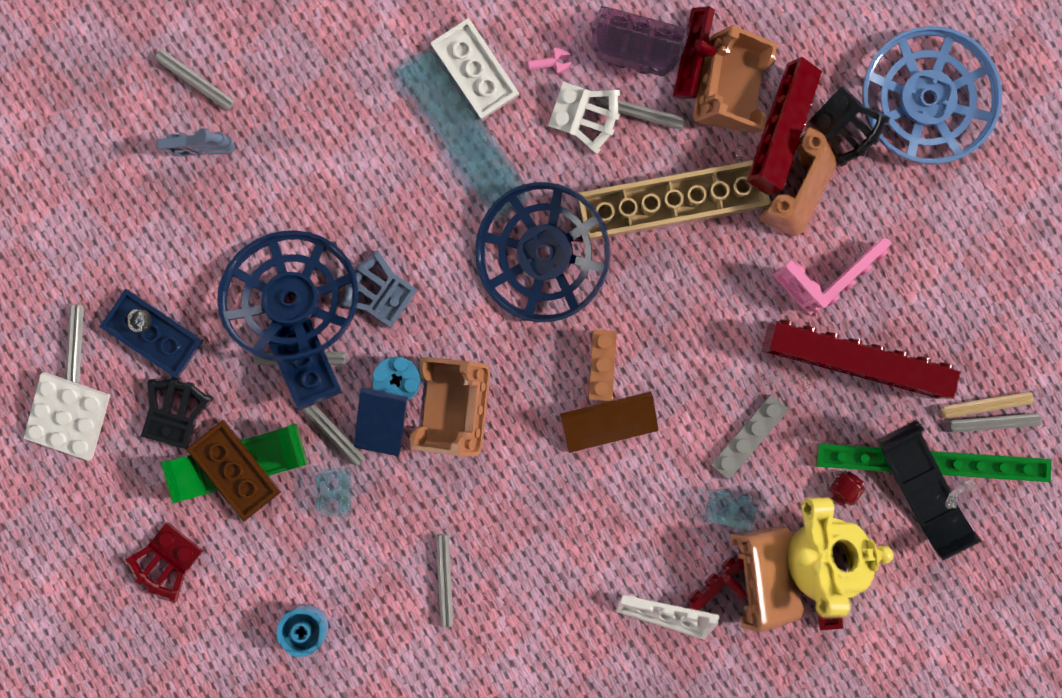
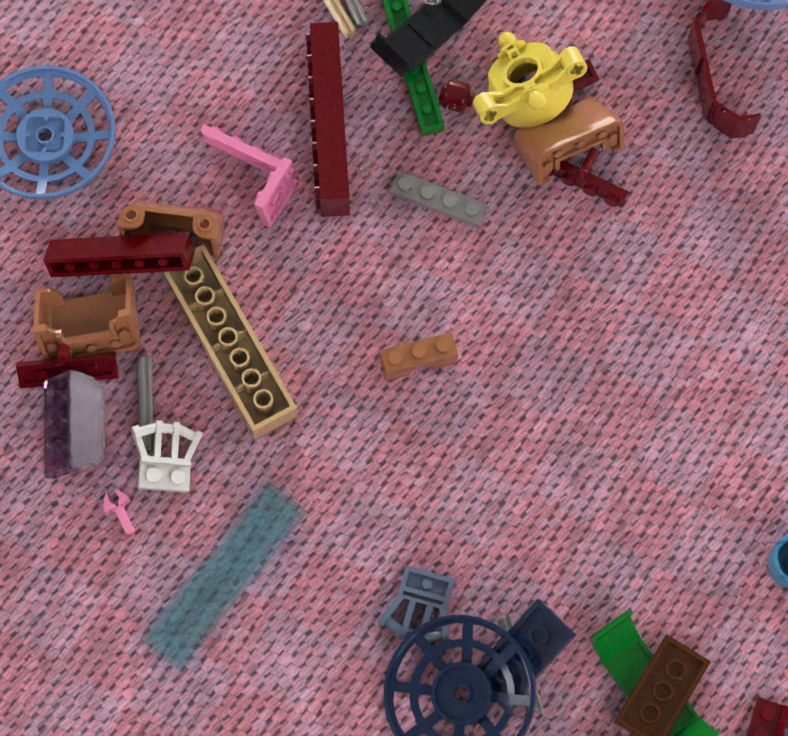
camera: 110 degrees left, 15 degrees down
(334, 434) = (586, 601): light grey axle -> none
(341, 493) = (642, 573): clear light blue brick -> none
(380, 421) = (556, 552): dark blue tile -> none
(401, 367) = (512, 539): dark azure brick -> none
(444, 580) = (690, 441): light grey axle -> none
(452, 407) = (515, 490): nougat windscreen -> none
(475, 69) = (152, 585): white plate -> none
(529, 252) = (340, 450): dark blue dish -> none
(609, 422) = (472, 330): reddish brown tile -> none
(672, 617) = (640, 214): white wing -> none
(729, 515) = (521, 192): clear light blue brick -> none
(837, 114) = (87, 211): black plate -> none

